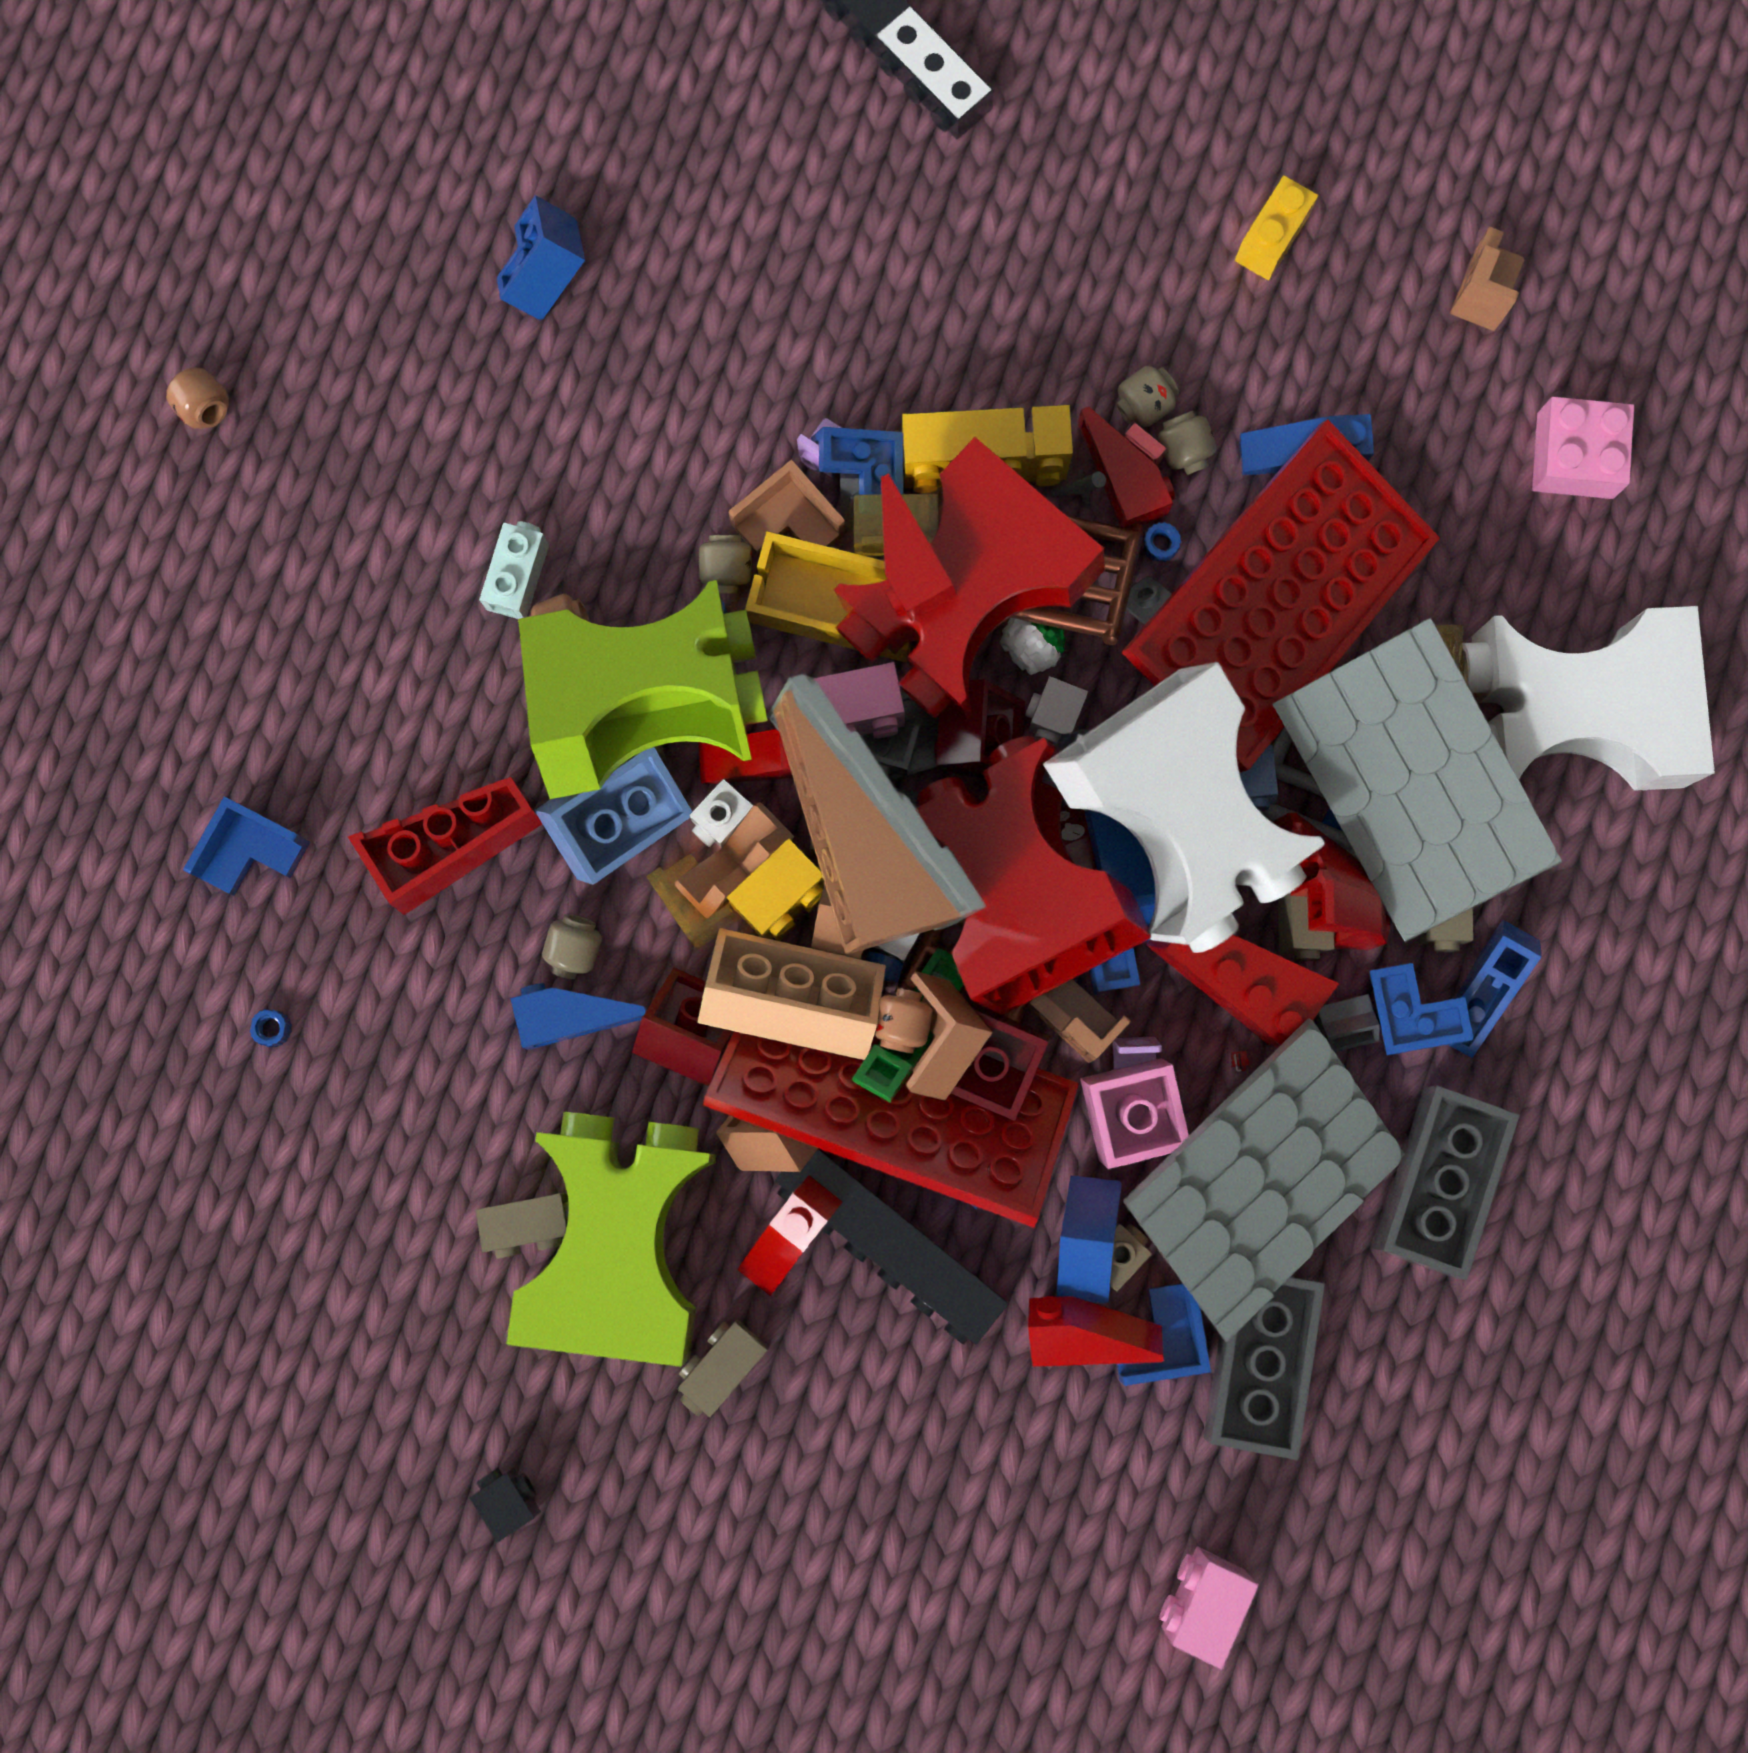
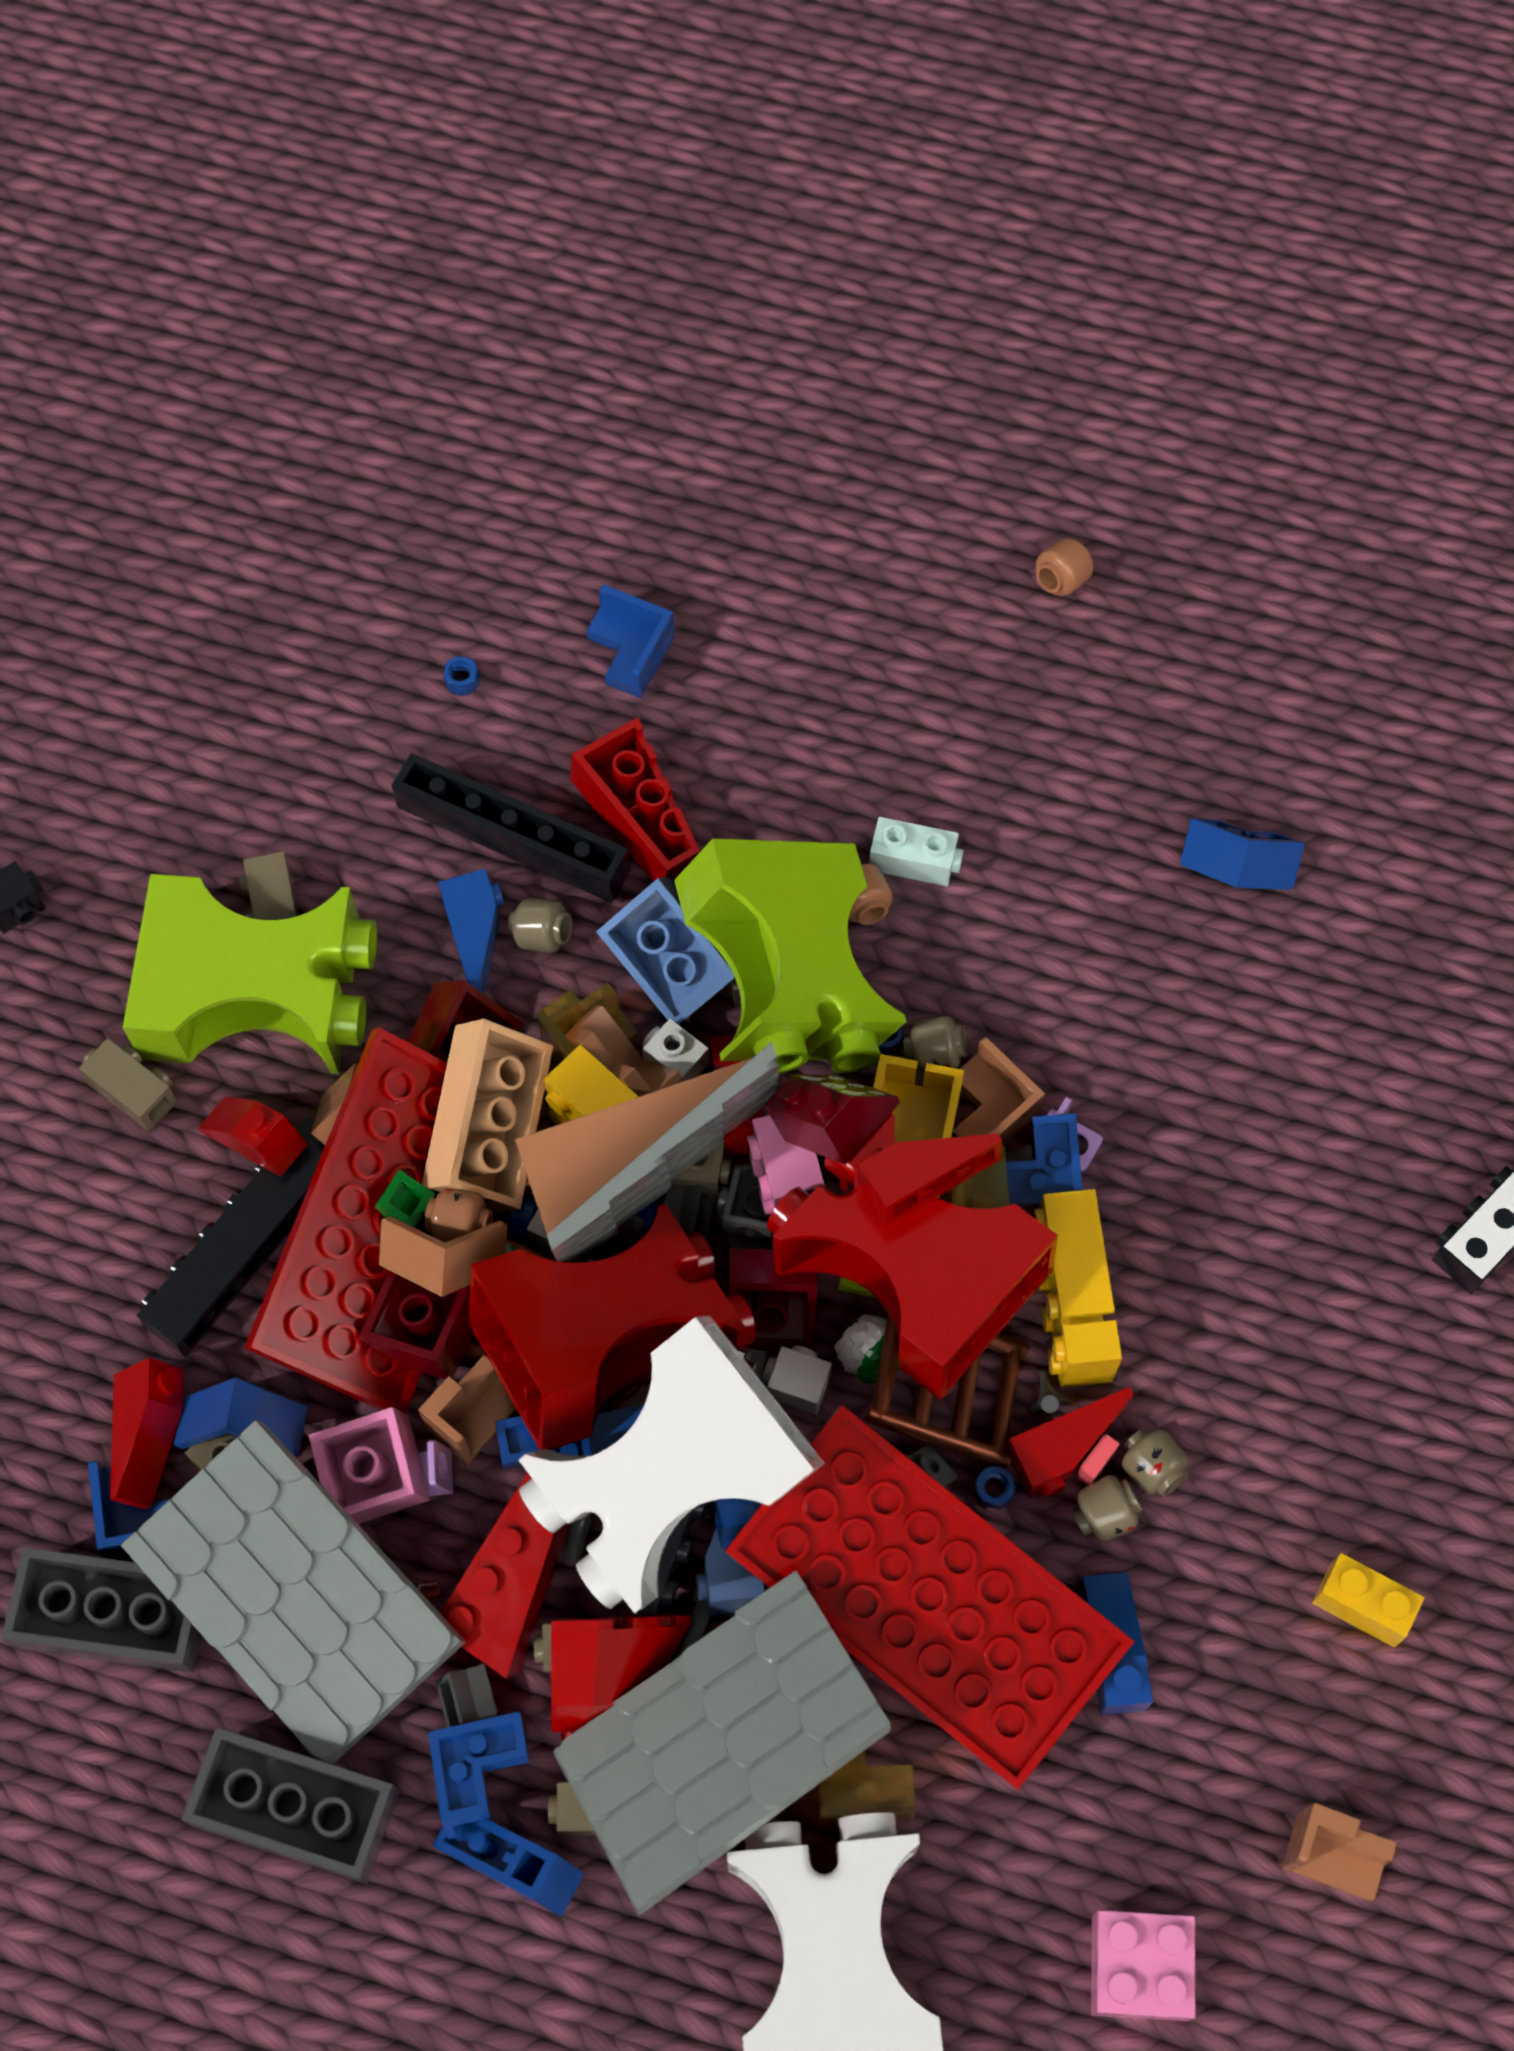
camera: 85 degrees right, 15 degrees down
(461, 974) = (511, 827): none -> black brick
(832, 641) = (829, 1113): none -> dark red slope

